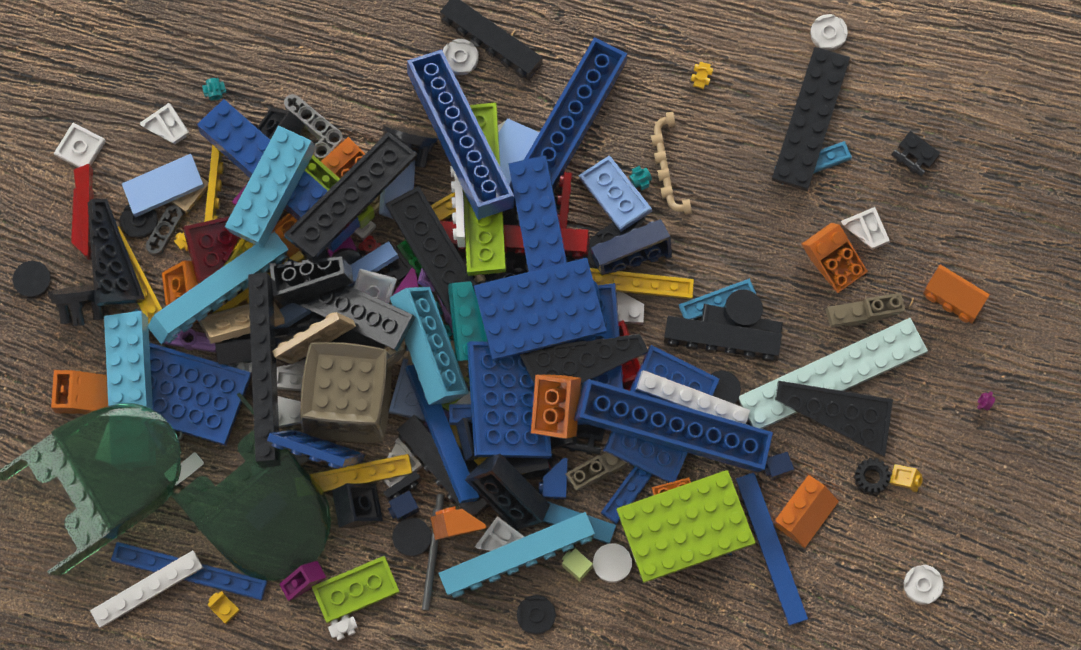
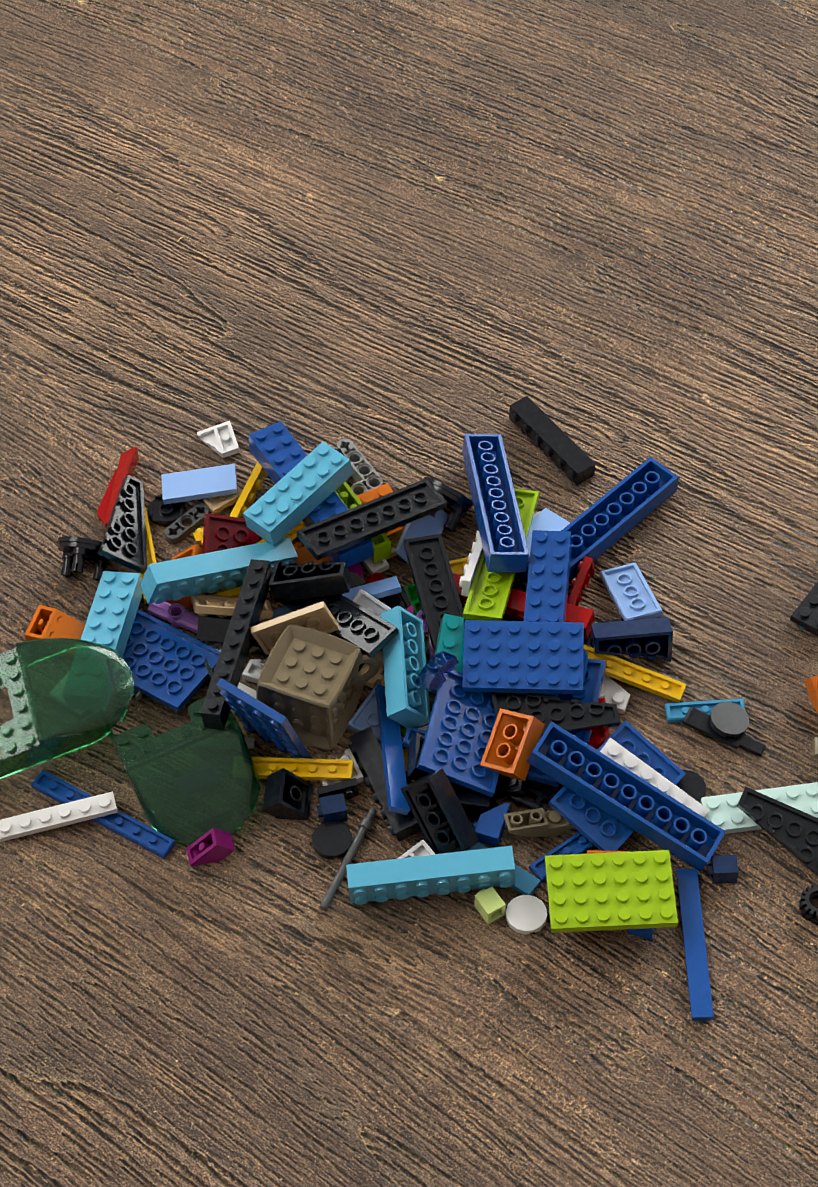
camera: 15 degrees right, 20 degrees down
(31, 279) = (46, 532): black tile -> none
(79, 146) = (134, 435): white tile -> none
(189, 466) = (122, 727): white sticker -> none
(214, 89) = (275, 416): teal gear -> none
(222, 607) = (123, 852): yellow bracket -> none
(338, 629) = (235, 900): white piece -> none
(355, 589) = (259, 870): lime plate -> none
(454, 522) = (379, 829): orange slope -> none
(461, 56) = (519, 450): white tile -> none
(462, 348) = (432, 674): none -> clear blue slope
(536, 615) = (433, 942): black tile -> none
(640, 177) = (660, 586): teal gear -> none
(663, 174) = (684, 590): tan bar -> none
(700, 78) = (747, 517): yellow piece -> none
(722, 338) = (700, 742): black brick -> none
(806, 511) = (739, 916): orange slope -> none

